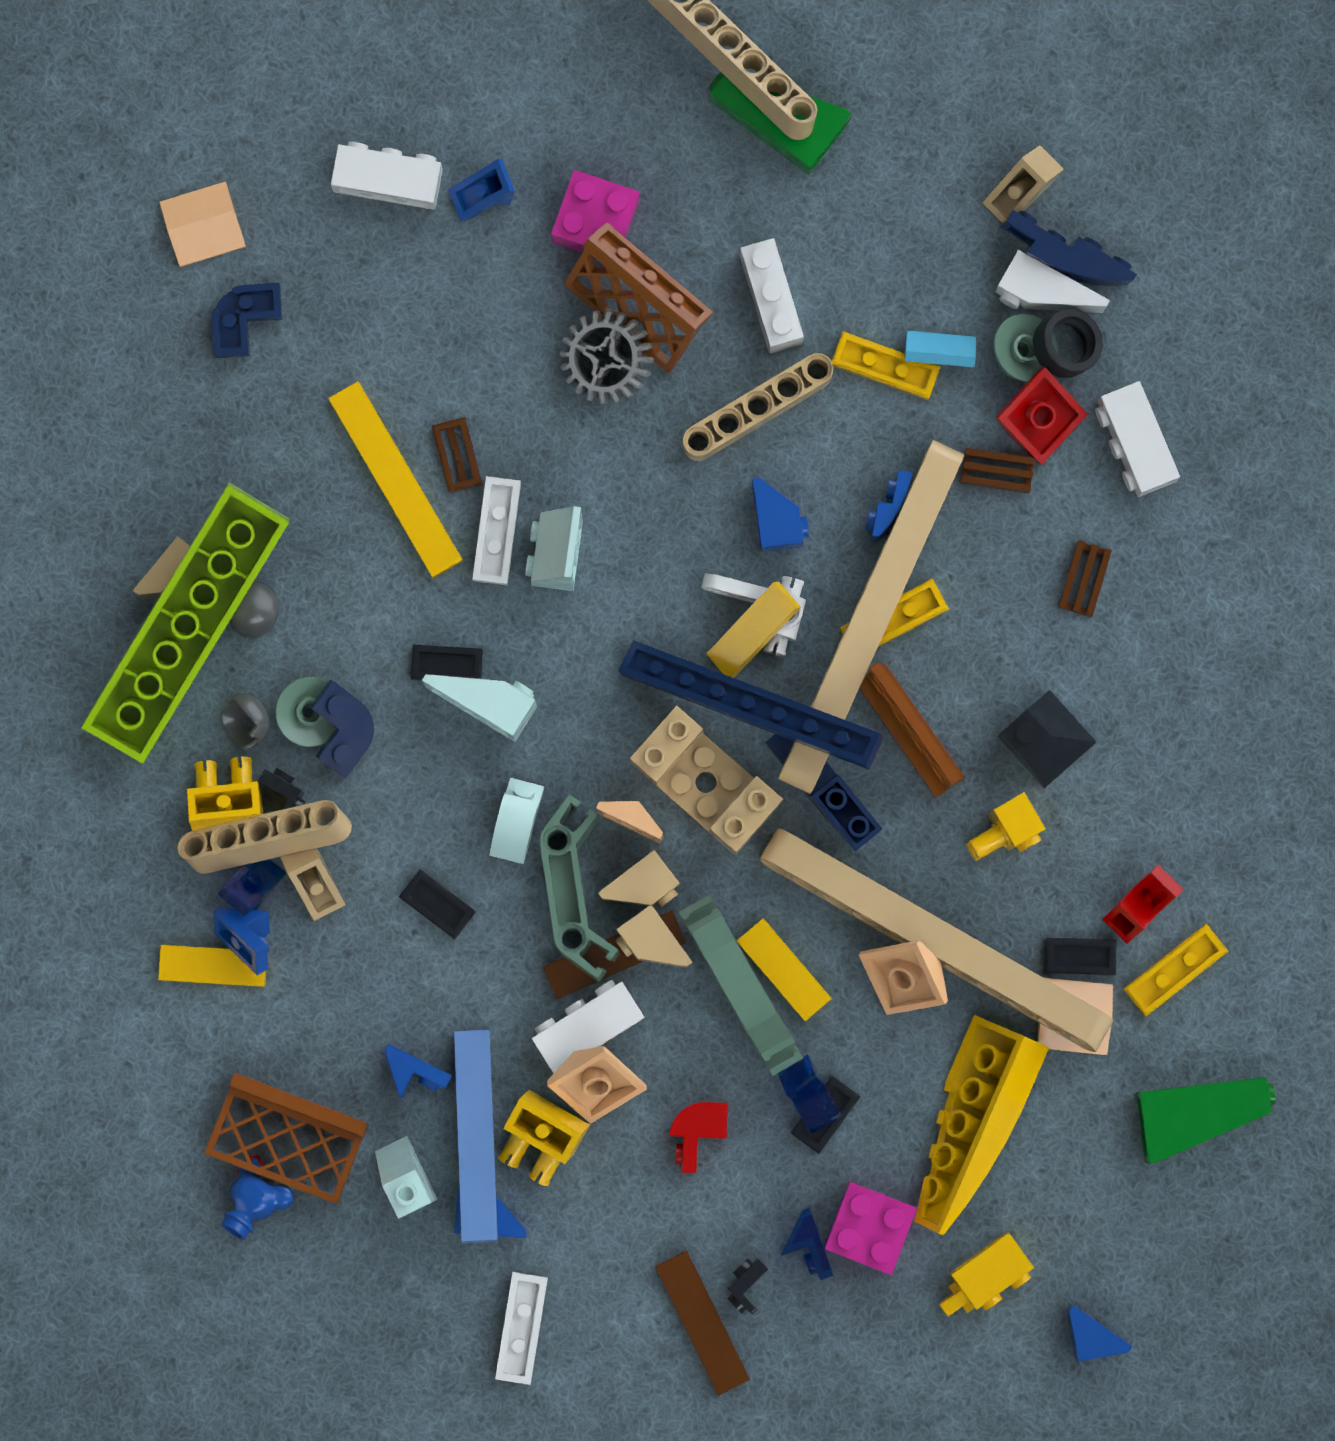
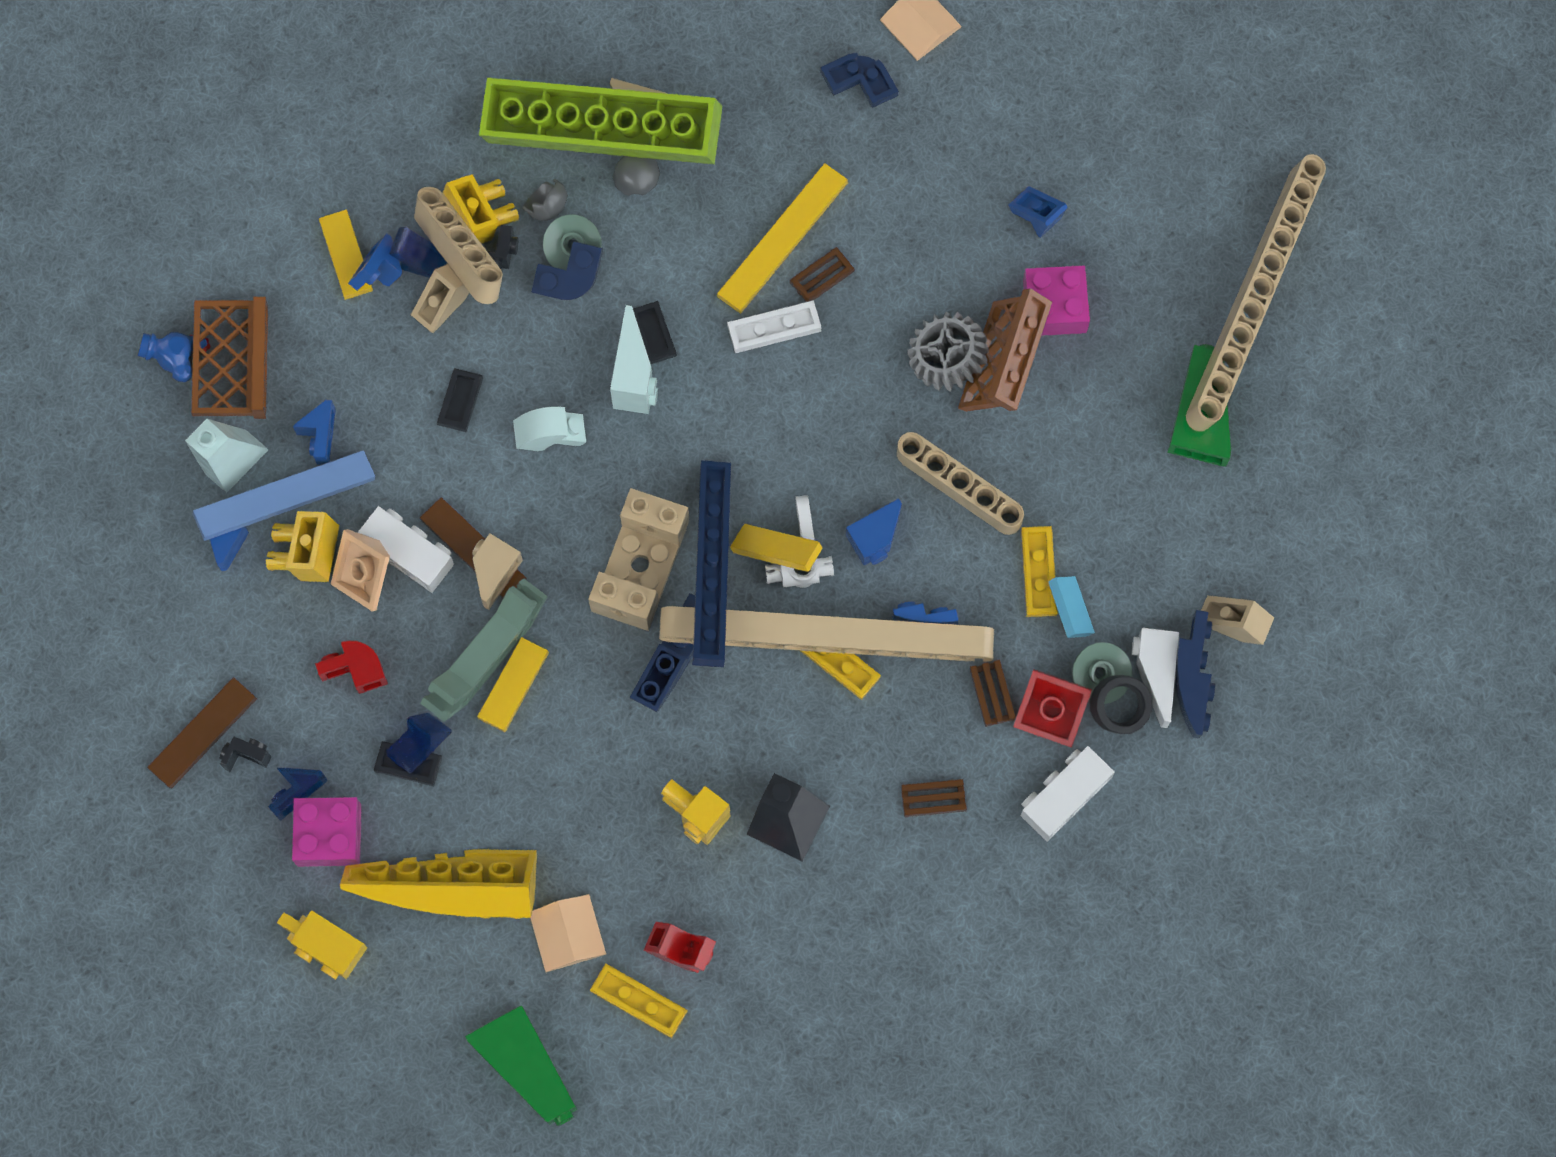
camera: 70 degrees right, 10 degrees down
(387, 175) = (1018, 136): white brick -> none
(521, 1328) = (146, 593): white plate -> none
(556, 548) = (777, 375): light aqua slope -> none
(566, 888) = (509, 488): sand green piece -> none
(632, 816) = (586, 514): light nougat slope -> none
(643, 884) = (538, 546): tan slope -> none
(771, 296) = (1054, 458): white brick -> none
(905, 977) = (543, 777): light nougat slope -> none
(910, 730) = (750, 705): dark orange fence -> none
(955, 949) = (582, 793): tan beam -> none
(1080, 956) = (618, 918): black tile -> none
(1091, 1338) = (303, 1049): blue slope -> none

